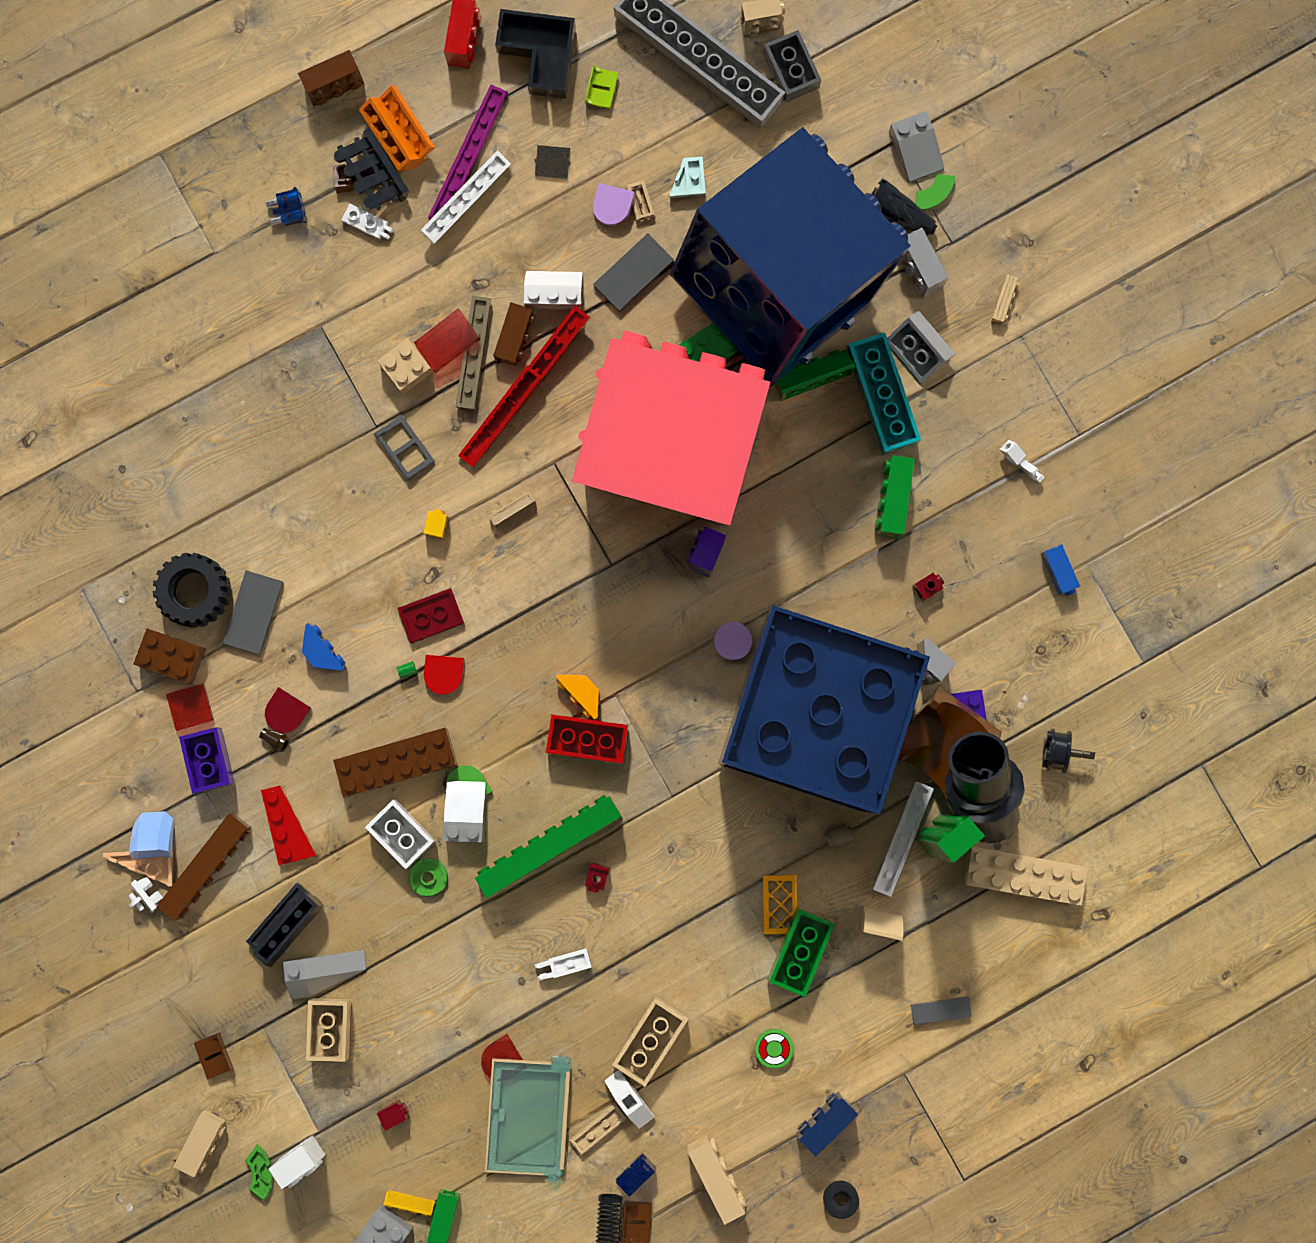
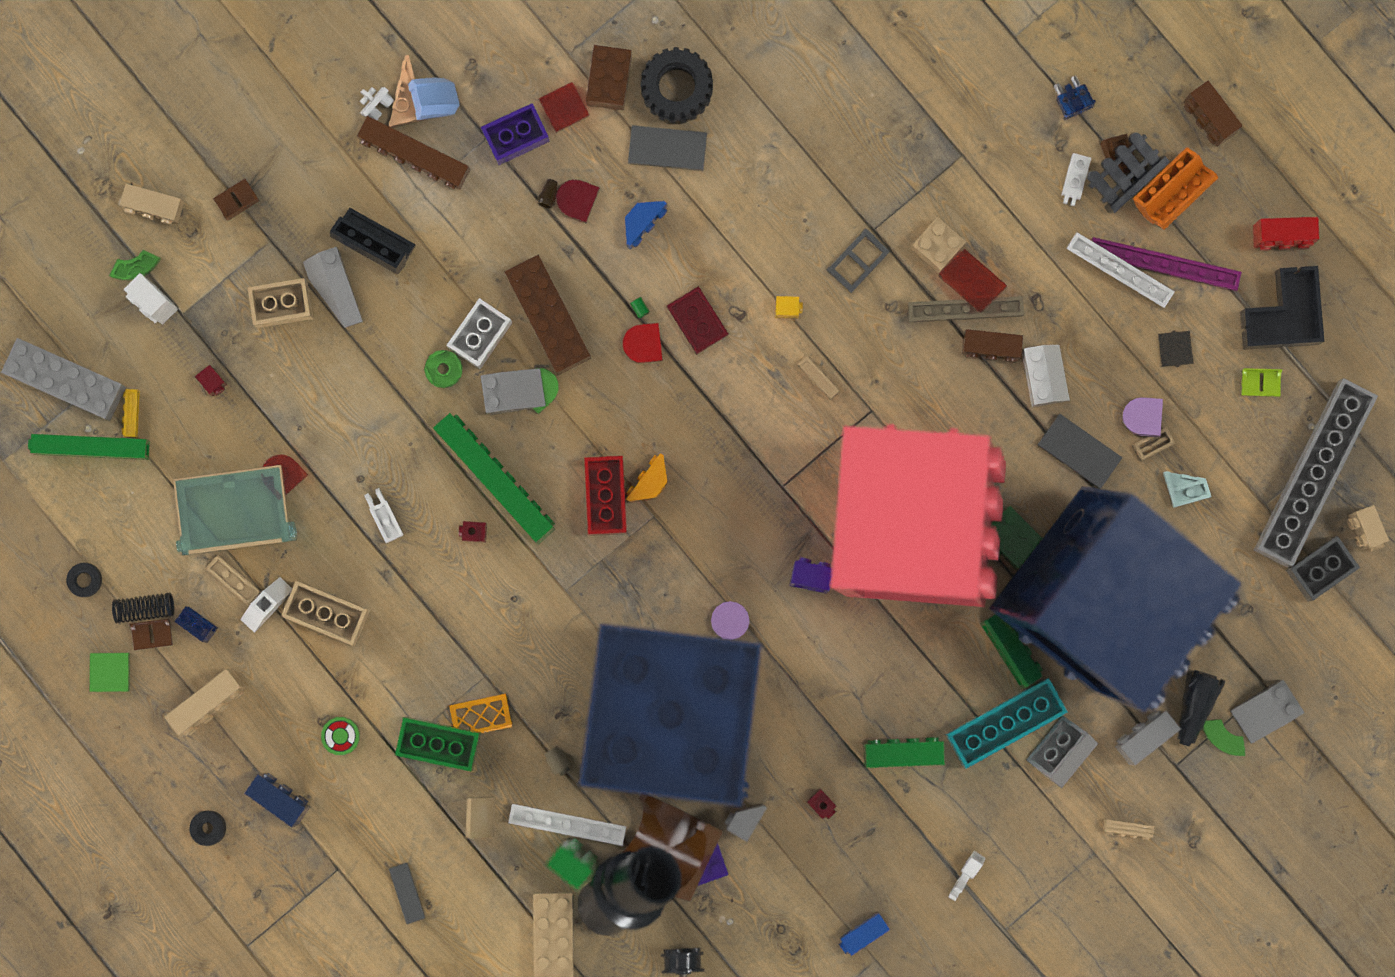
camera: 80 degrees right, 0 degrees up
(286, 830) = (460, 225): red wing -> none
(524, 386) = (942, 366): red slope -> none

